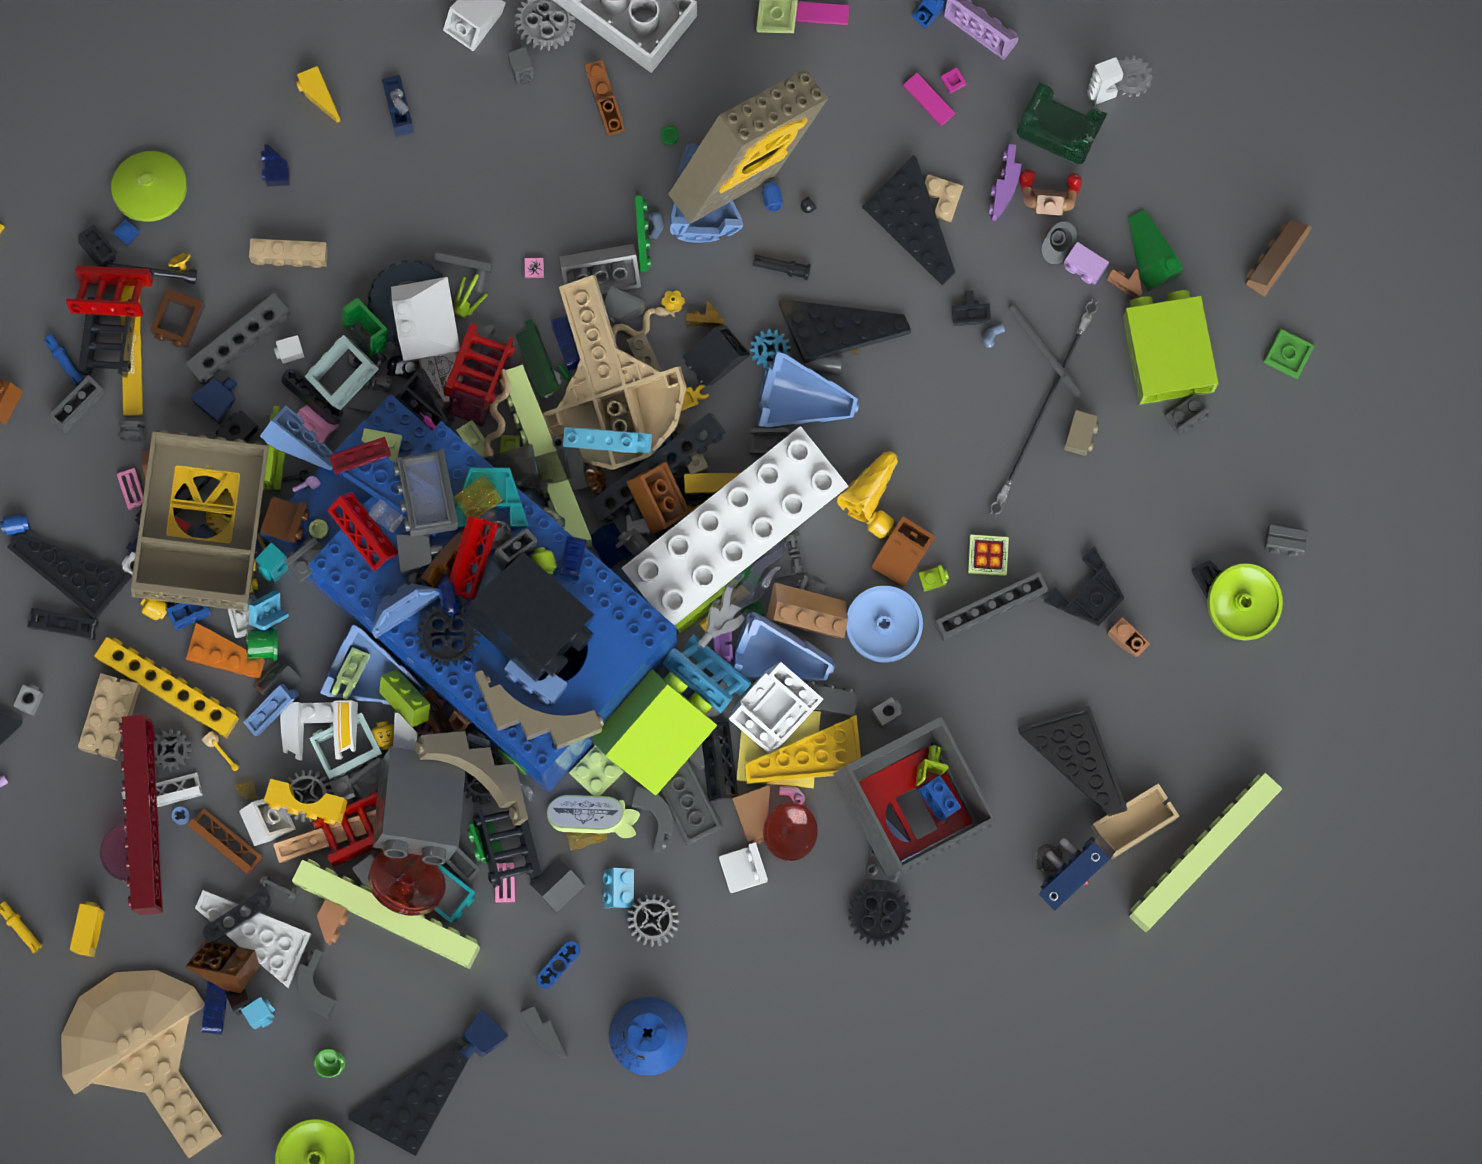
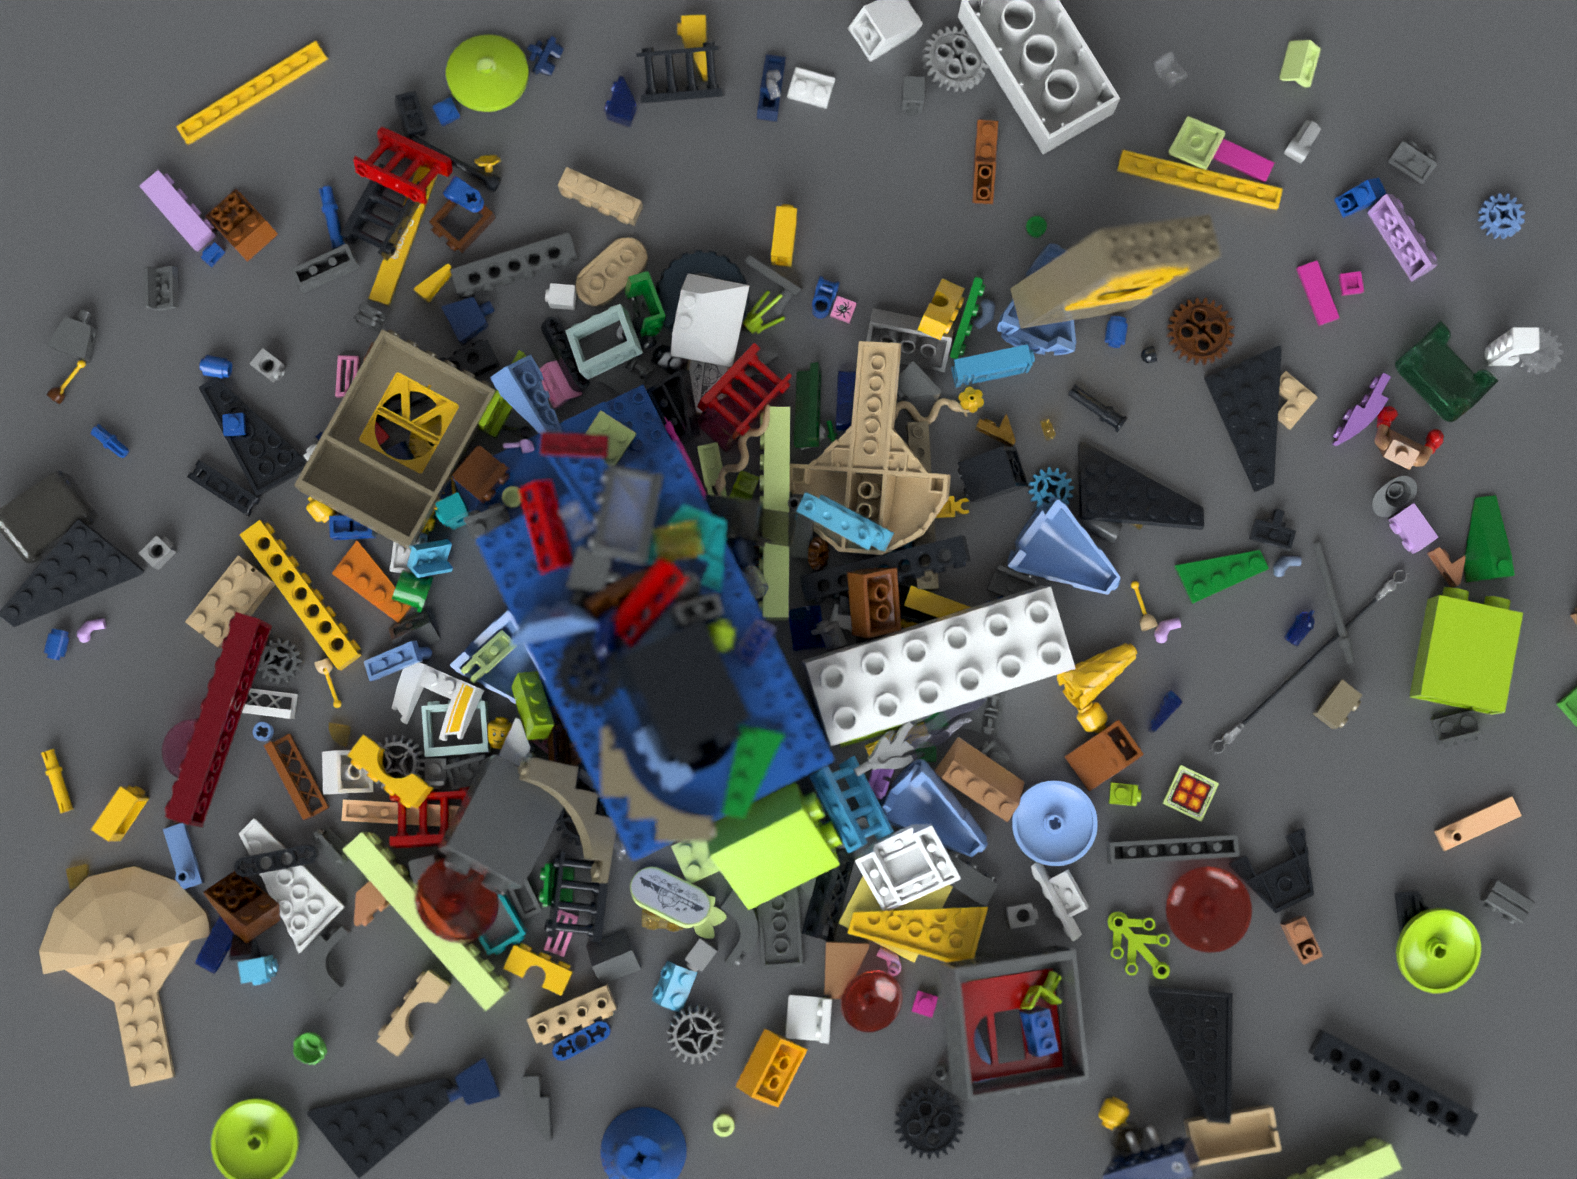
camera: 25 degrees right, 5 degrees up
(51, 565) = (234, 424): none -> blue plate
(52, 502) = (260, 362): none -> light grey brick
(68, 1000) = (77, 875): none -> clear yellow tile
(154, 947) = (183, 856): none -> medium blue piece
(169, 295) = (461, 193): none -> blue piece
(173, 384) = (430, 287): none -> yellow slope
(194, 144) = (550, 48): none -> dark blue hips
(315, 141) = (692, 90): none -> black fence
(322, 312) = (610, 271): none -> tan tile
(411, 972) = (397, 1034): none -> tan arch
(431, 92) = (811, 87): none -> white plate
(459, 225) = (784, 235): none -> yellow window
(480, 917) = (556, 974): none -> yellow arch
(513, 261) = (826, 294): none -> blue piece
(541, 945) = (572, 1014): none -> tan brick
(609, 659) = (750, 764): none -> green wing
(618, 234) = (942, 309): none -> yellow arch
(630, 853) = (700, 955): none -> light grey brick
(679, 265) = (992, 365): none -> dark azure door
(707, 987) = (723, 1125): none -> yellowish green tile
(728, 922) = (771, 1068): none -> light orange slope
(747, 300) = (1047, 429): none -> clear yellow tile
(792, 43) = (1199, 179): none -> yellow tile
(836, 818) = (924, 1003): none -> dark pink plate
(848, 153) = (1211, 317): none -> reddish brown gear
(895, 427) = (1147, 620): none -> hinge
(911, 427) = (1164, 627): none -> lavender arm
(917, 682) = (1064, 897): none -> white bracket
(937, 366) = (1216, 574): none -> green wing
(941, 489) = (1165, 710): none -> clear blue slope
(992, 697) = (1136, 941): none -> lime plant
(1025, 382) = (1300, 628): none -> clear blue piece
(1029, 843) = (1113, 1112): none -> yellow head
(1041, 644) = (1208, 909): none -> clear red dish
(1237, 486) = (1477, 823): none -> light nougat piece
(1319, 728) = (1462, 1119): none -> black brick

